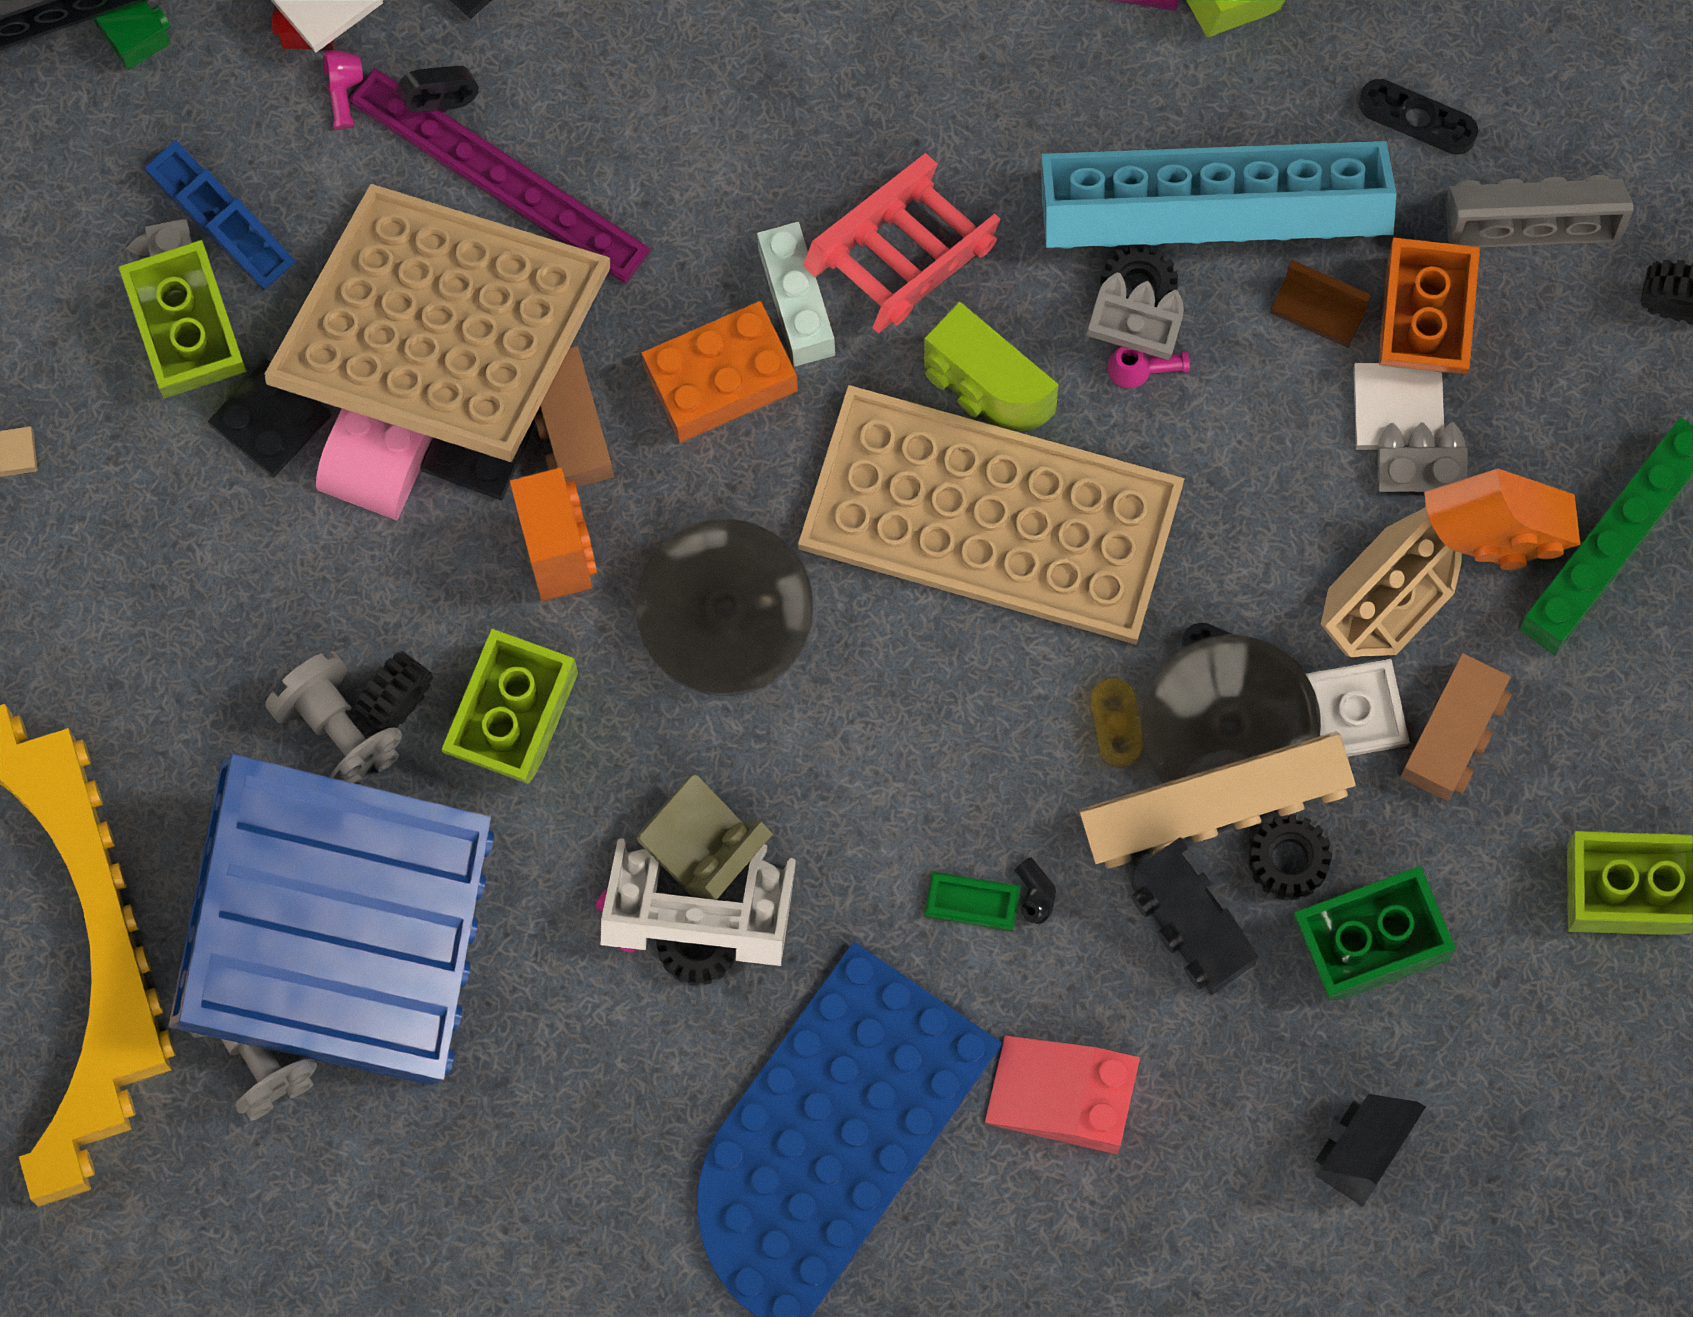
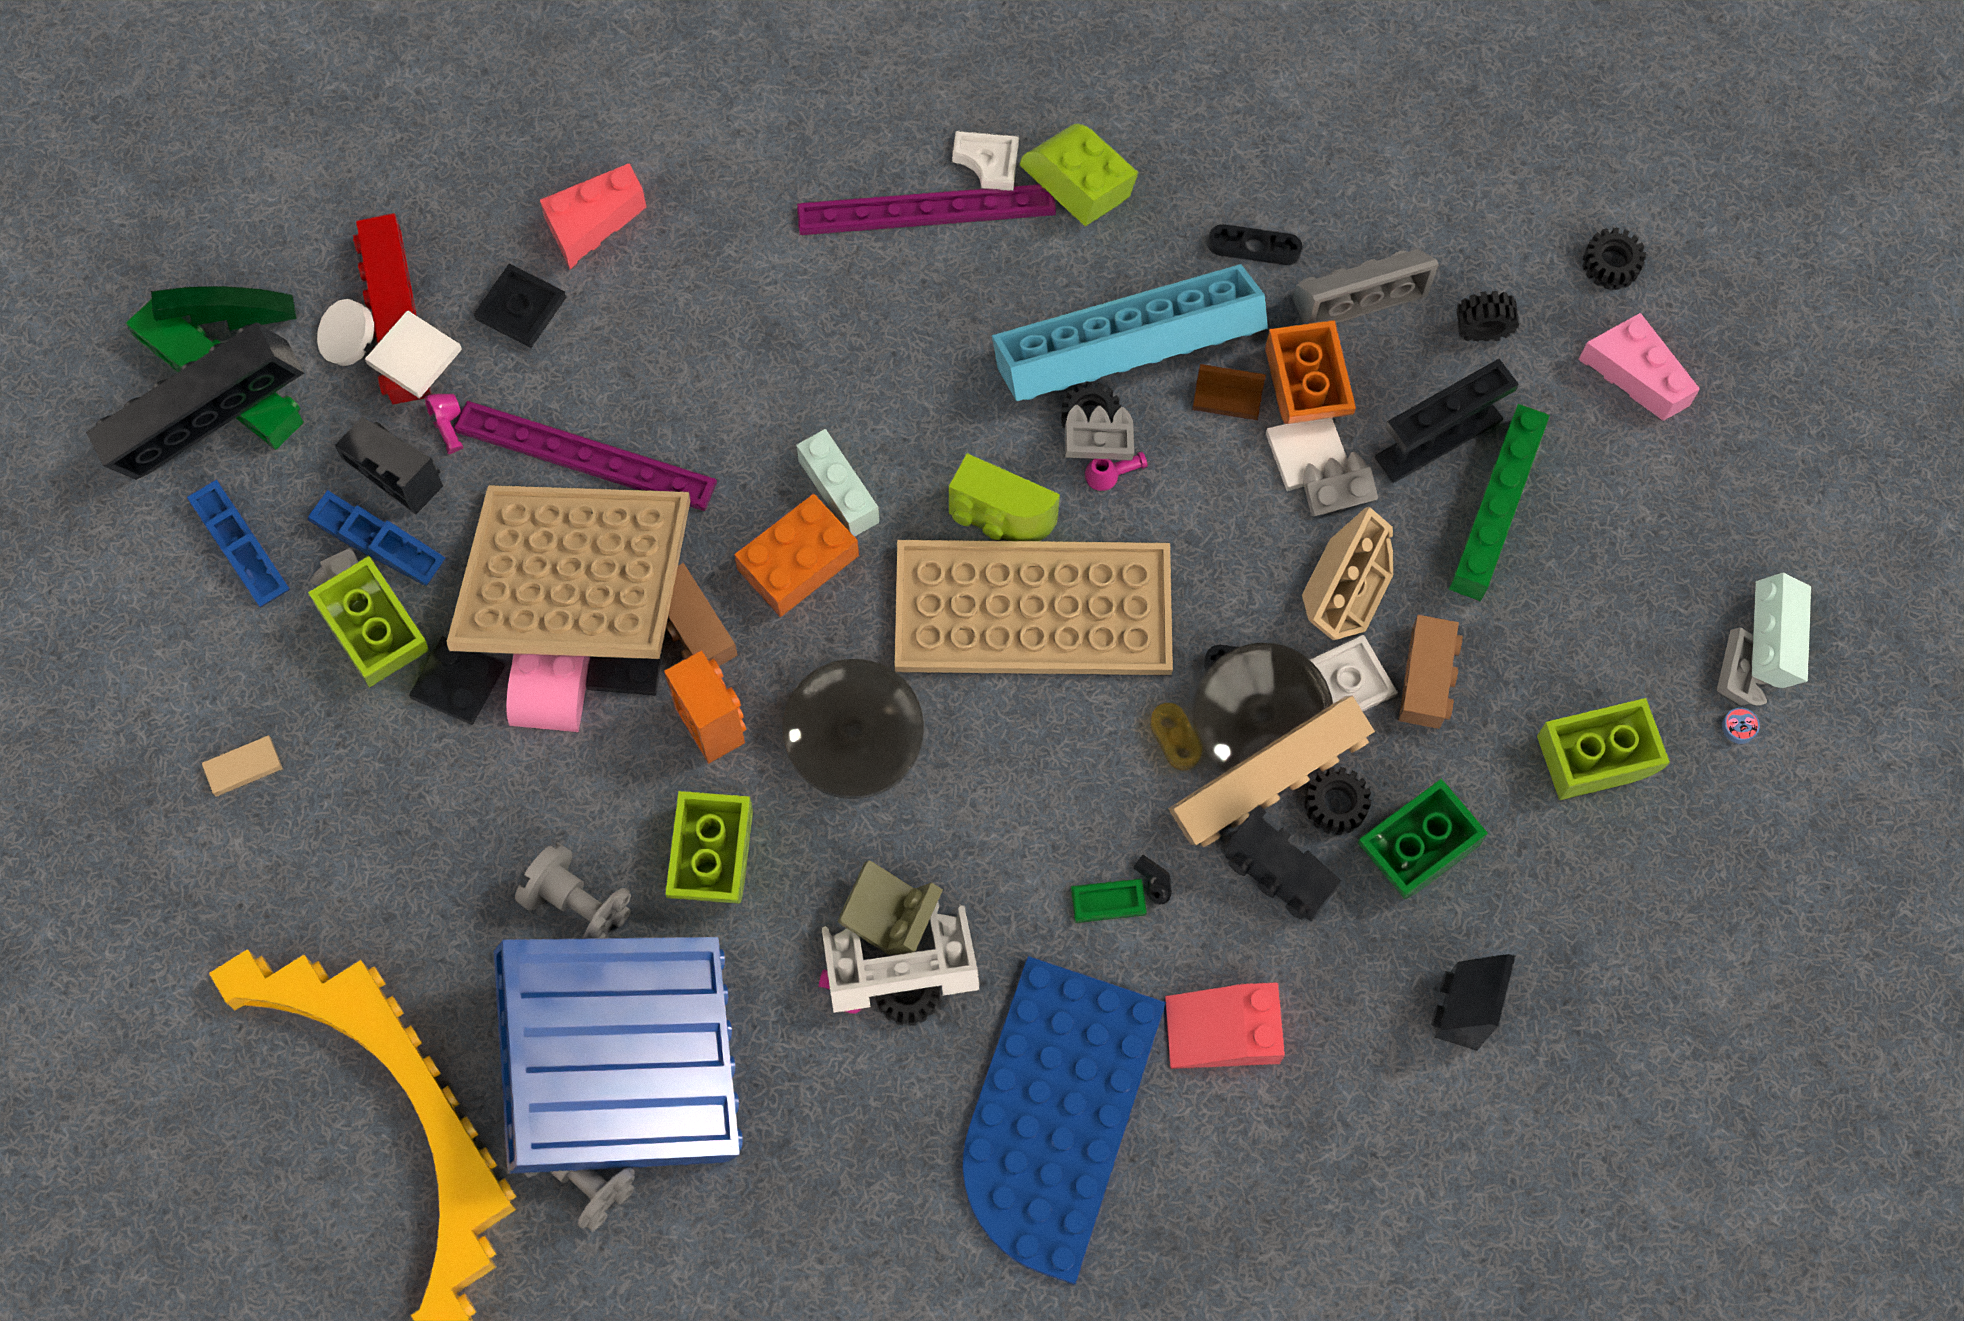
camera: 20 degrees left, 5 degrees down
(54, 178) = (238, 543): none -> blue slope
(260, 126) = (390, 464): none -> black wedge
(393, 692) = (613, 862): black tyre -> none
(437, 88) = (520, 402): black beam -> none
(889, 206) = (889, 401): coral fence -> none
(1504, 518) = (1418, 507): orange brick -> none
(1579, 415) = (1446, 420): none -> black fence

